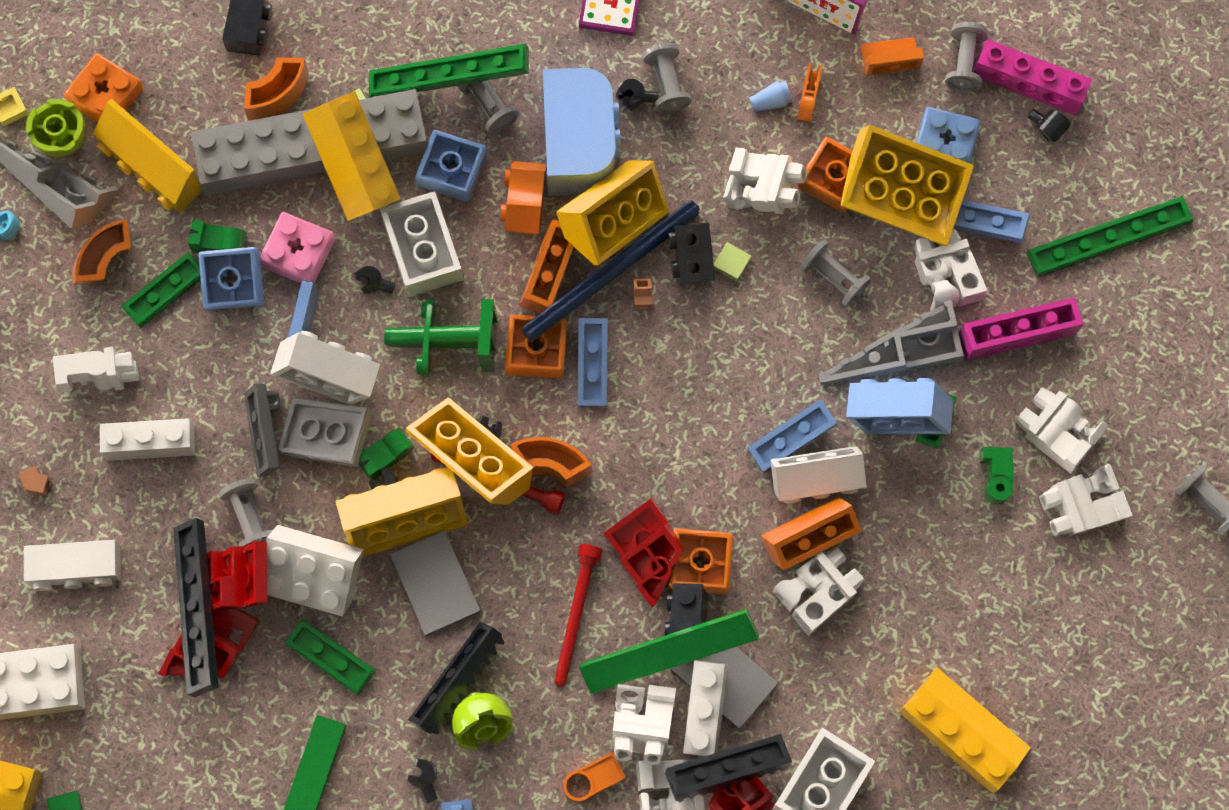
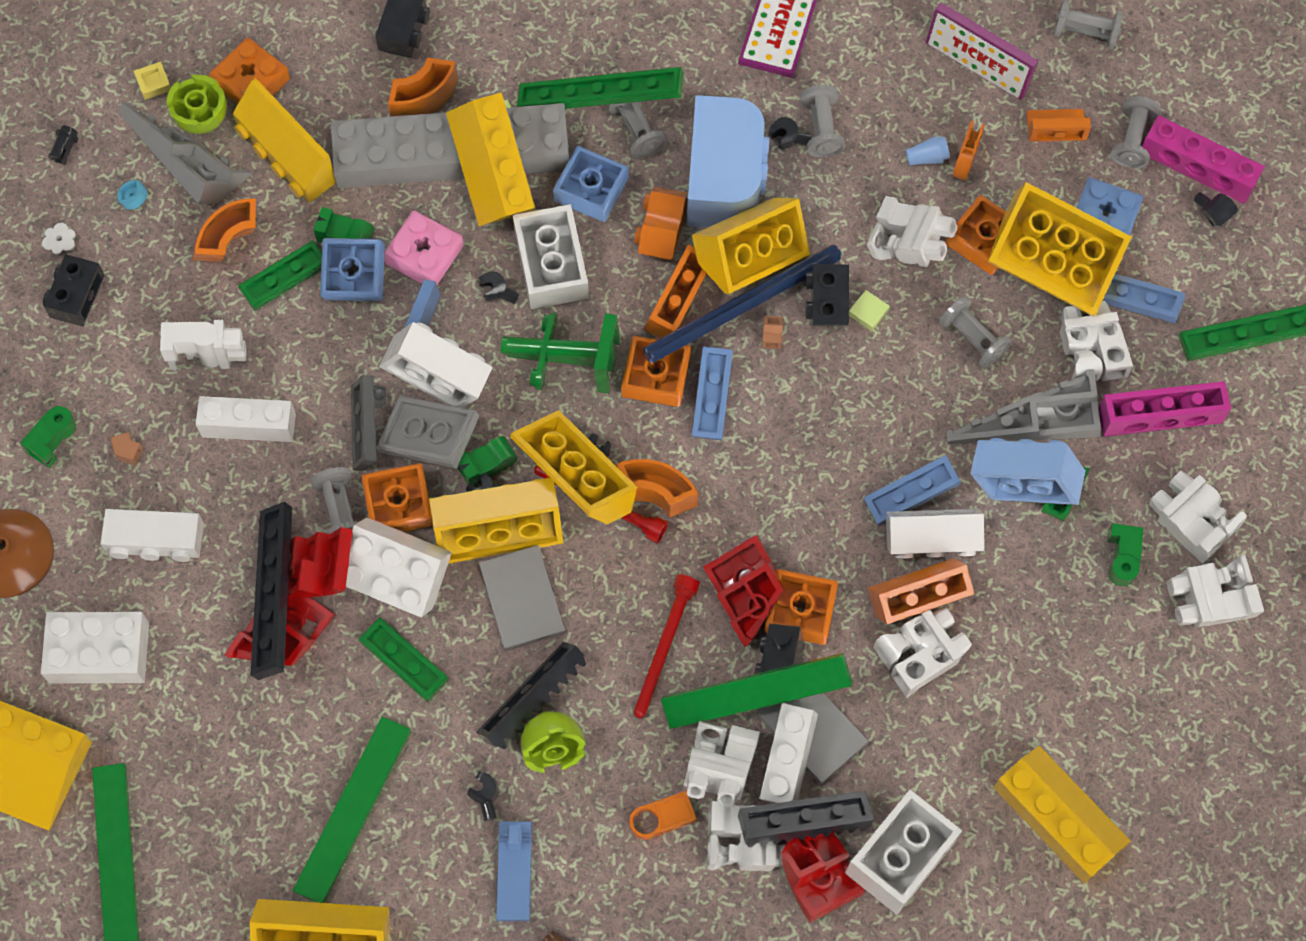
camera: 10 degrees right, 5 degrees down
(313, 485) = (402, 481): none -> orange brick

